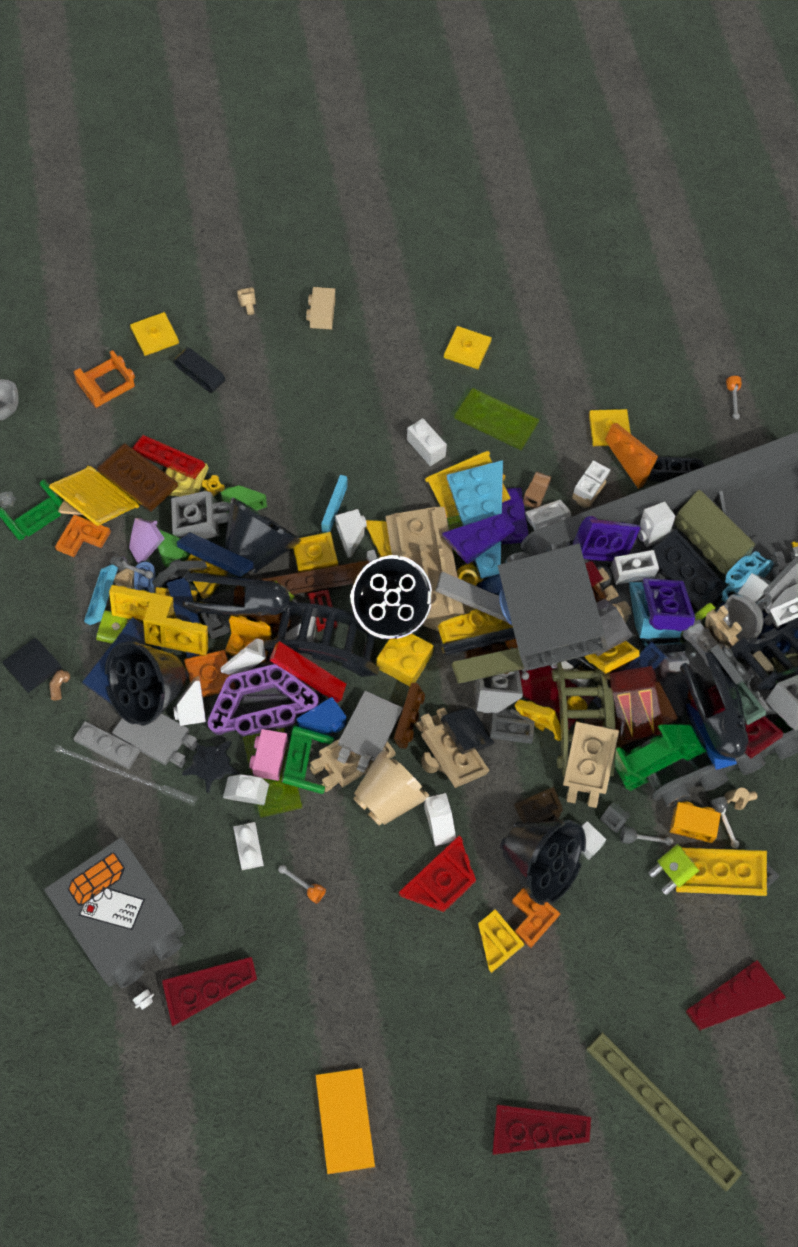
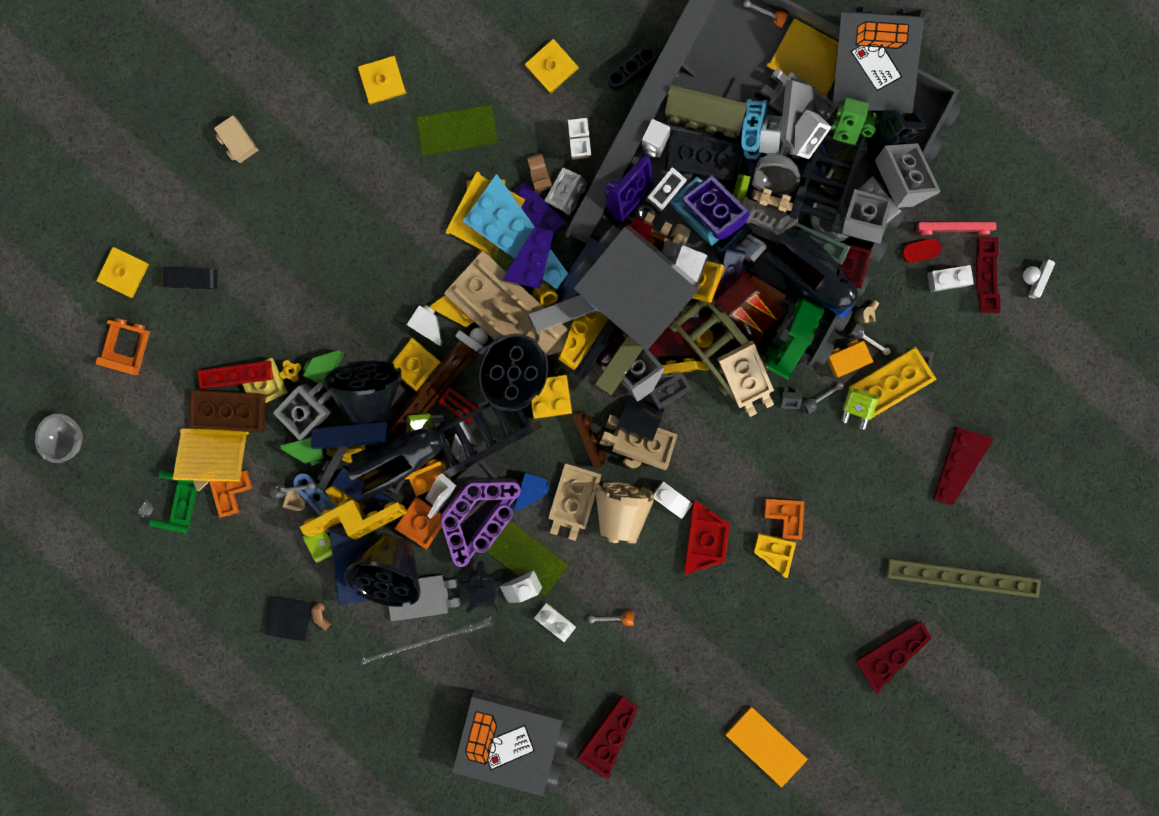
camera: 35 degrees left, 25 degrees up
(100, 595) = (288, 526): medium azure tile -> none
(106, 745) = (394, 631): light grey plate -> none
(143, 999) = (574, 778): white plate -> none
(144, 539) = (280, 459): lavender slope -> none
(191, 705) = (430, 559): white slope -> none
(247, 298) = (168, 178): tan piece -> none
(269, 754) = (517, 551): bright pink brick -> none
(297, 758) = (538, 535): green plate -> none
(307, 671) = (493, 470): red tile -> none
(334, 504) = (396, 313): medium azure tile -> none
(368, 729) = (570, 474): light grey tile -> none
(426, 442) = (421, 200): white brick -> none
(540, 807) = (735, 435): dark brown slope -> none
(545, 856) = (766, 476): black cone -> none
(594, 840) = (783, 432): white brick -> none
(631, 453) = (589, 83): orange wing -> none
(730, 663) = (802, 230): dark grey wing -> none
(764, 662) = (821, 204): dark tan tile -> none

